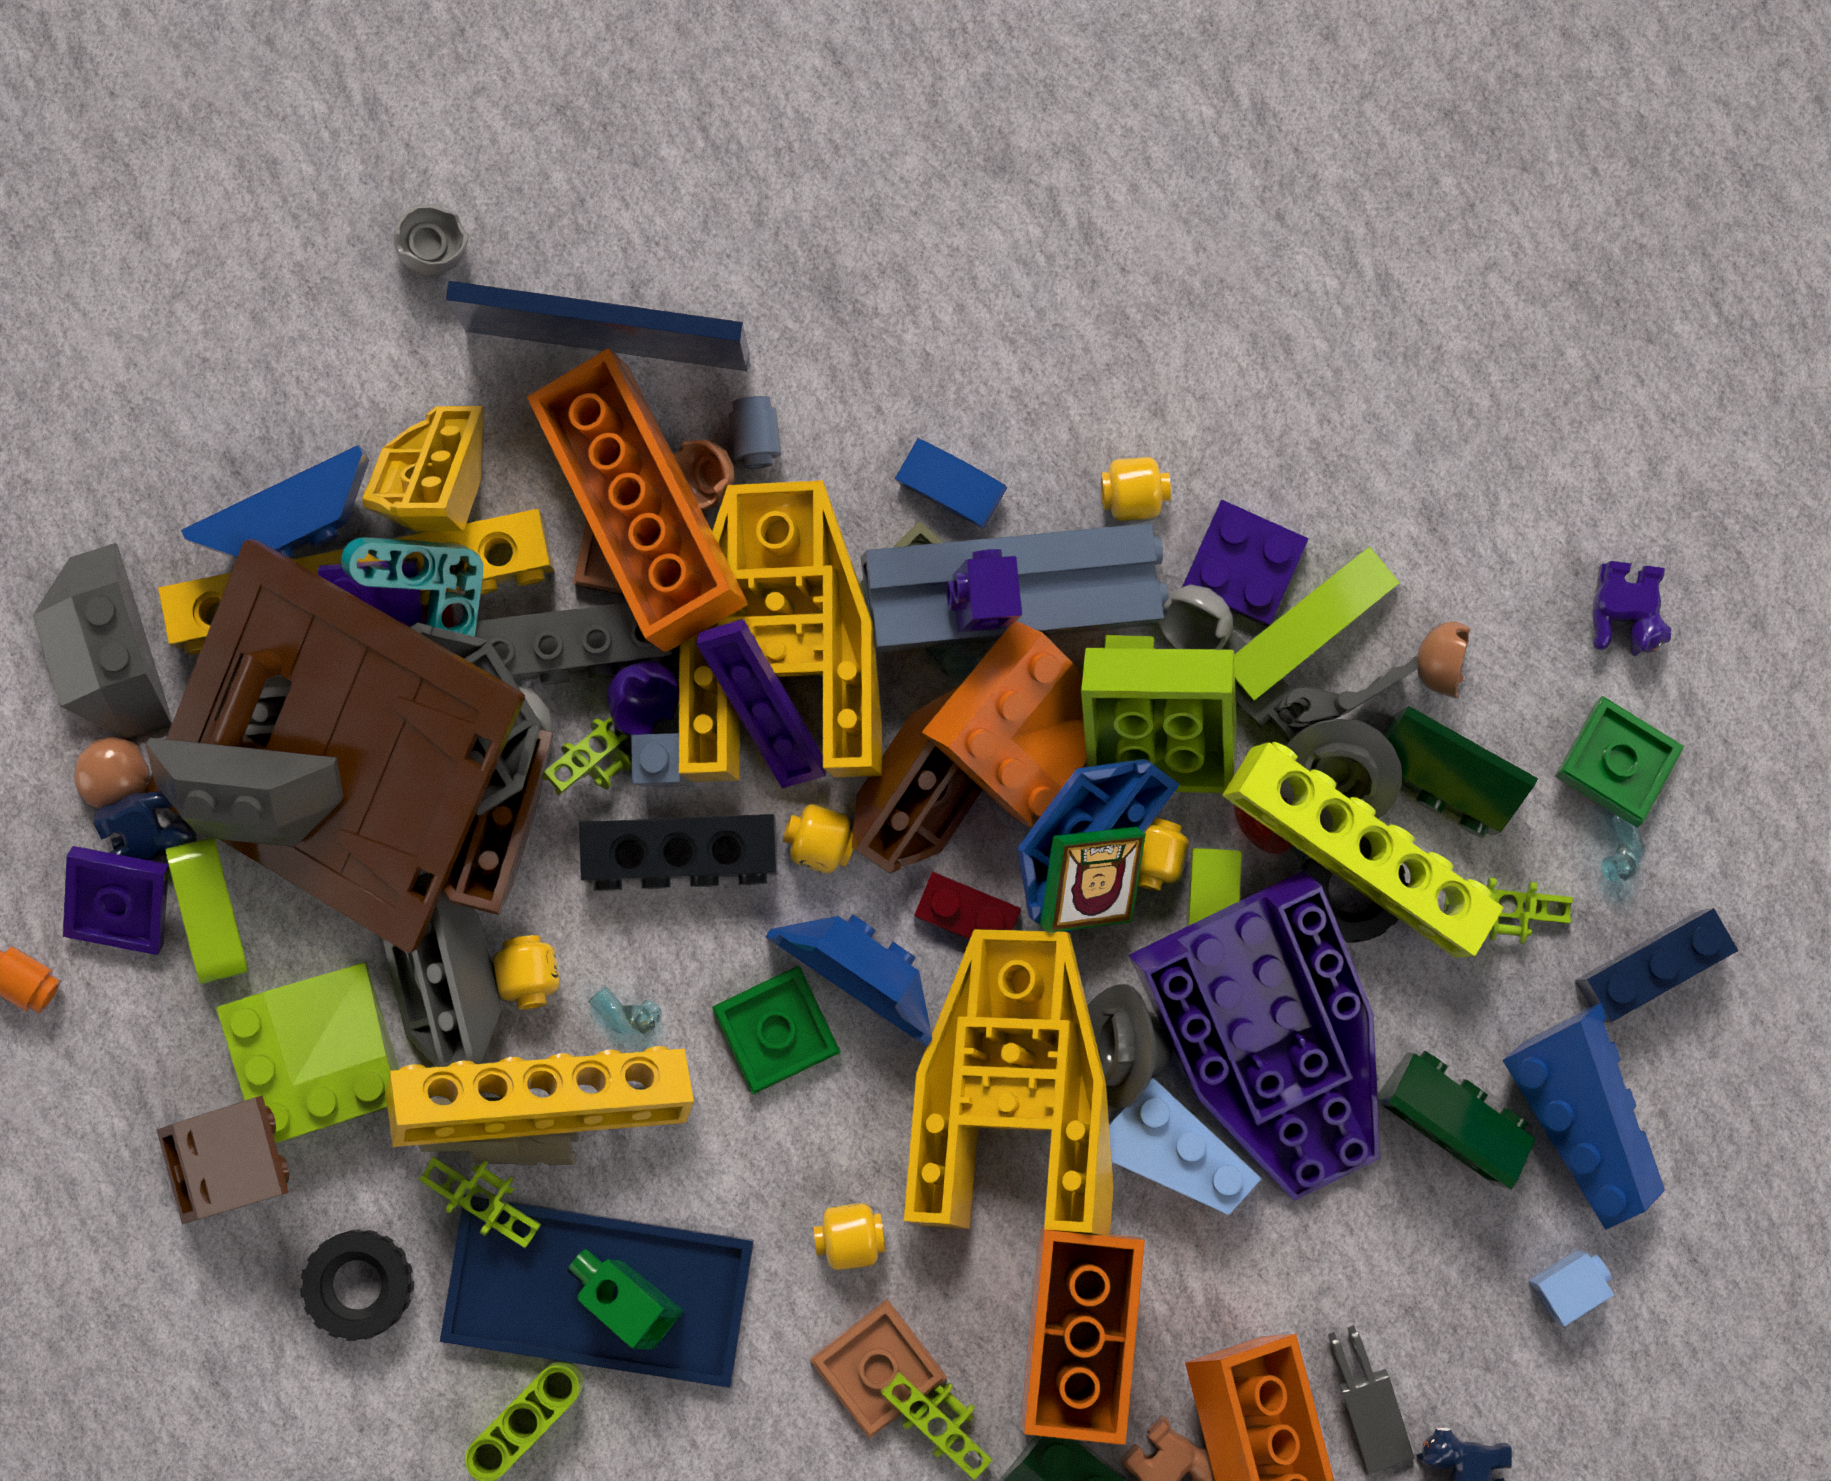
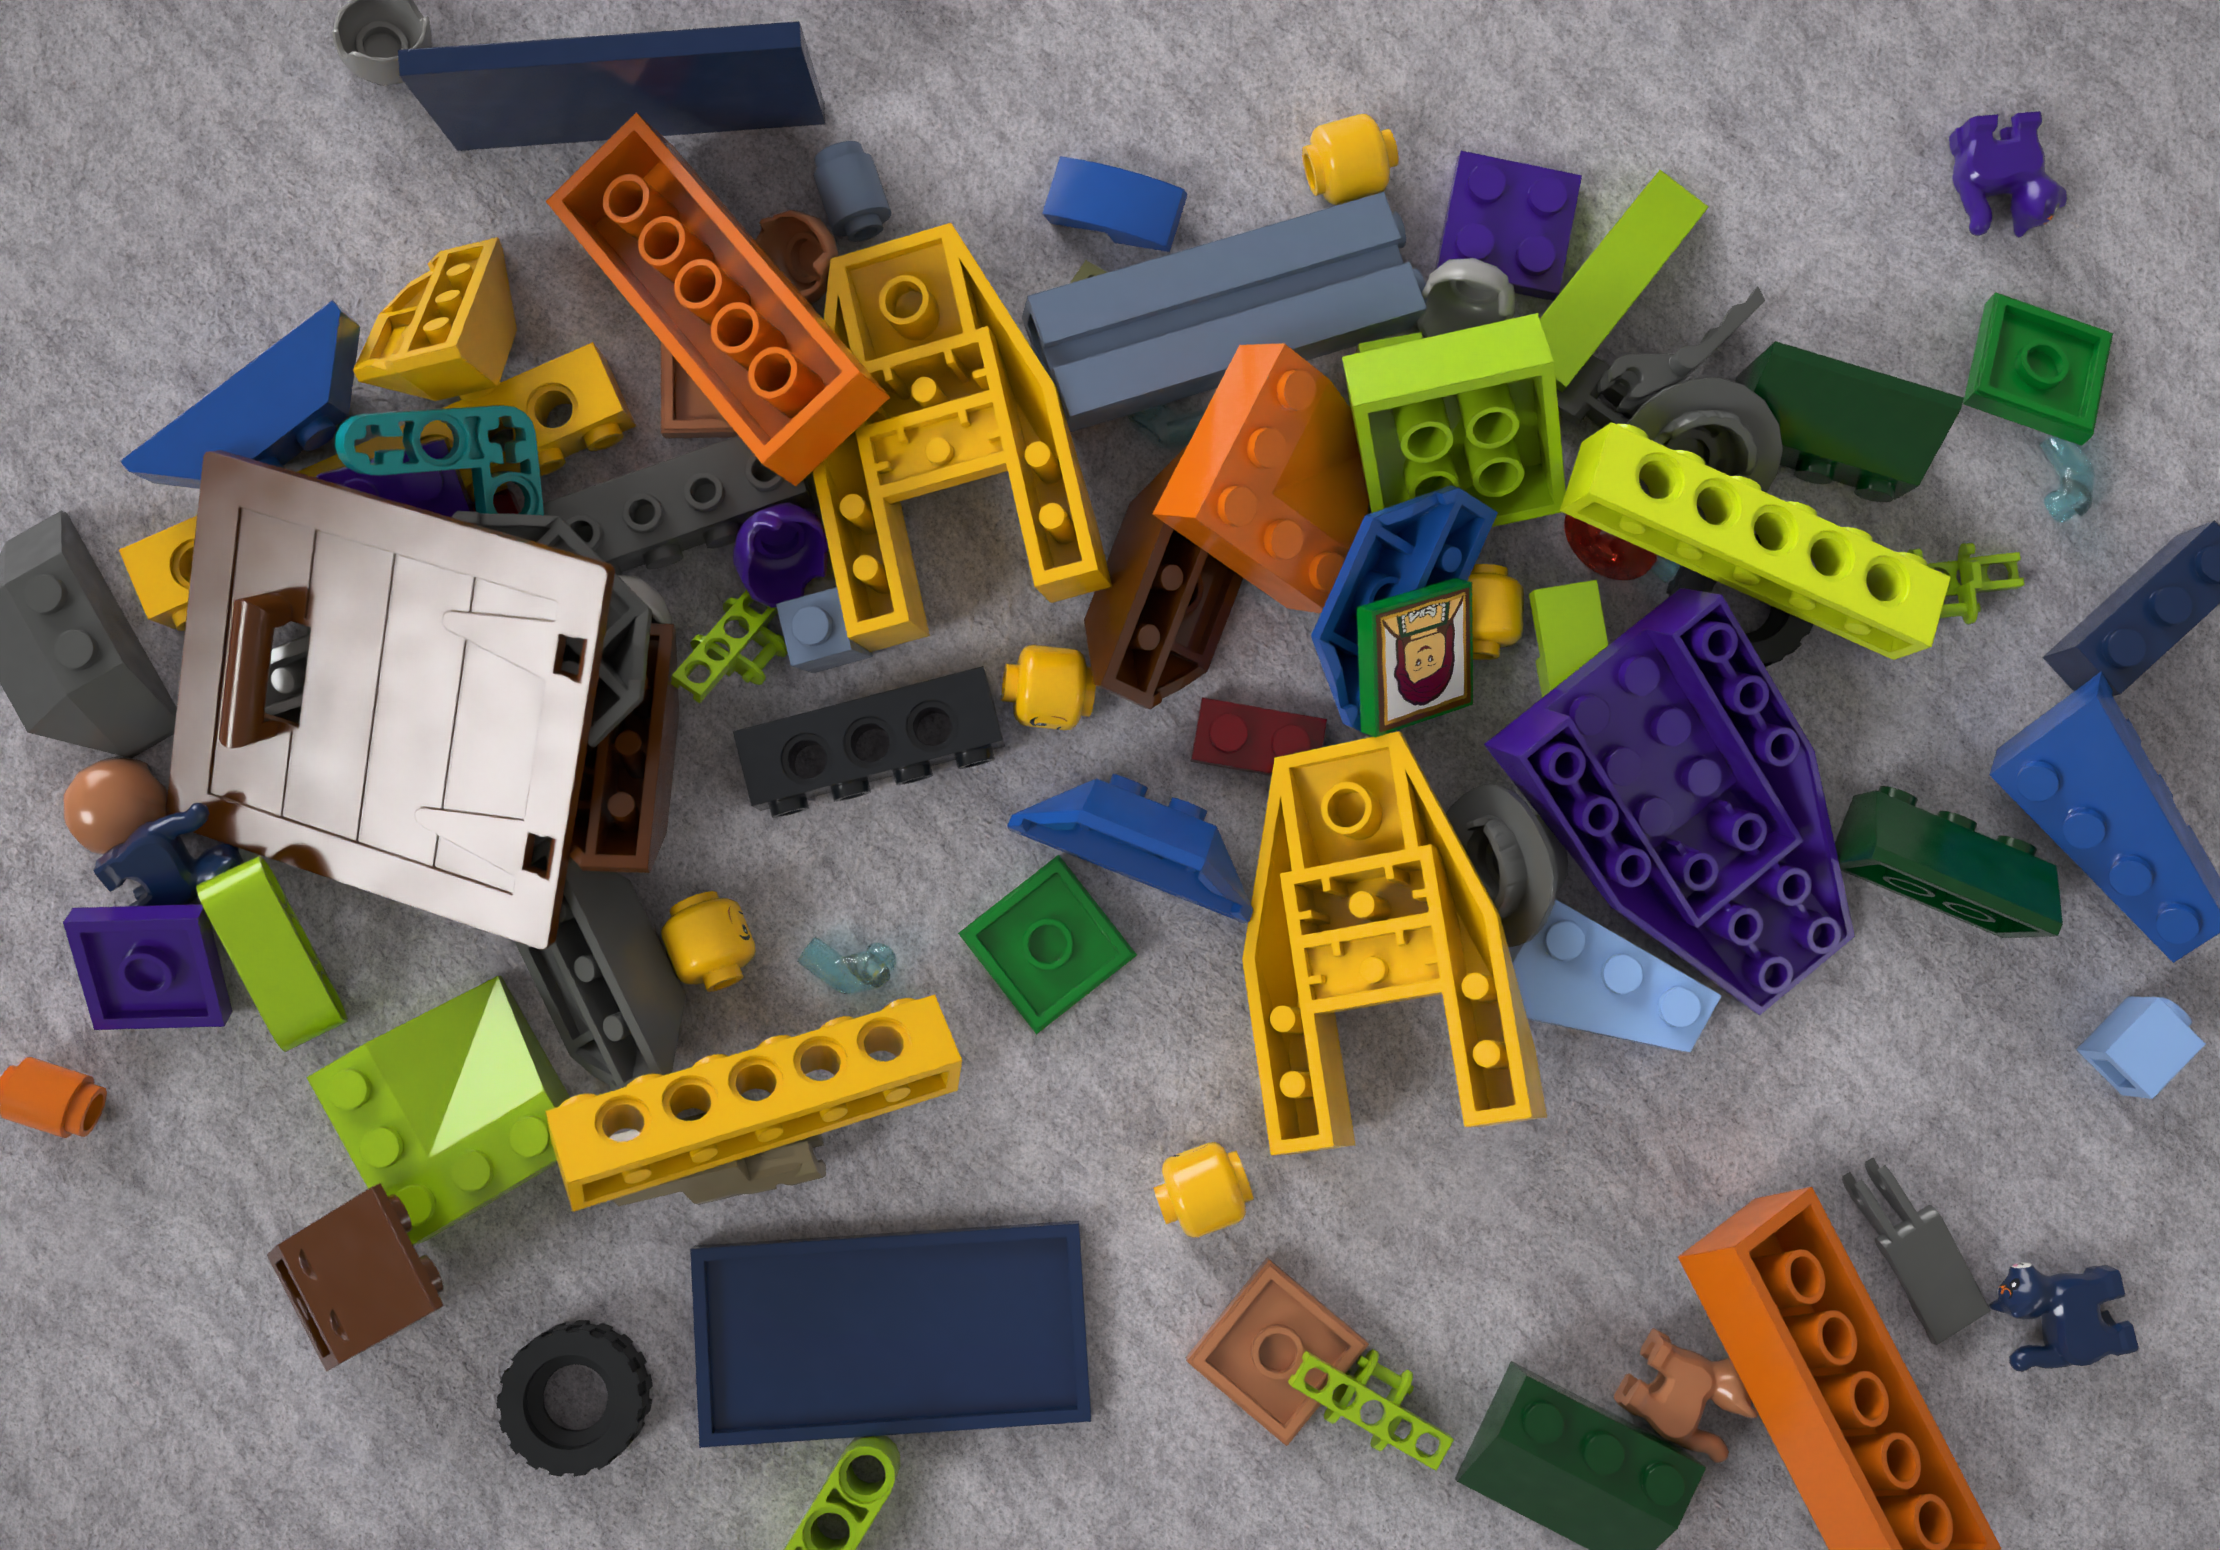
camera: 15 degrees left, 0 degrees up
(246, 790) = (281, 783): dark grey wedge -> none
(495, 1201) = (733, 1248): lime piece -> none
(640, 1311) = (952, 1347): green torso -> none
(761, 703) = (934, 522): dark purple plate -> none
(985, 592) = (1198, 308): dark purple brick -> none
(1082, 1336) = (1542, 1257): orange brick -> none
(1442, 658) = (1793, 283): nougat hair -> none

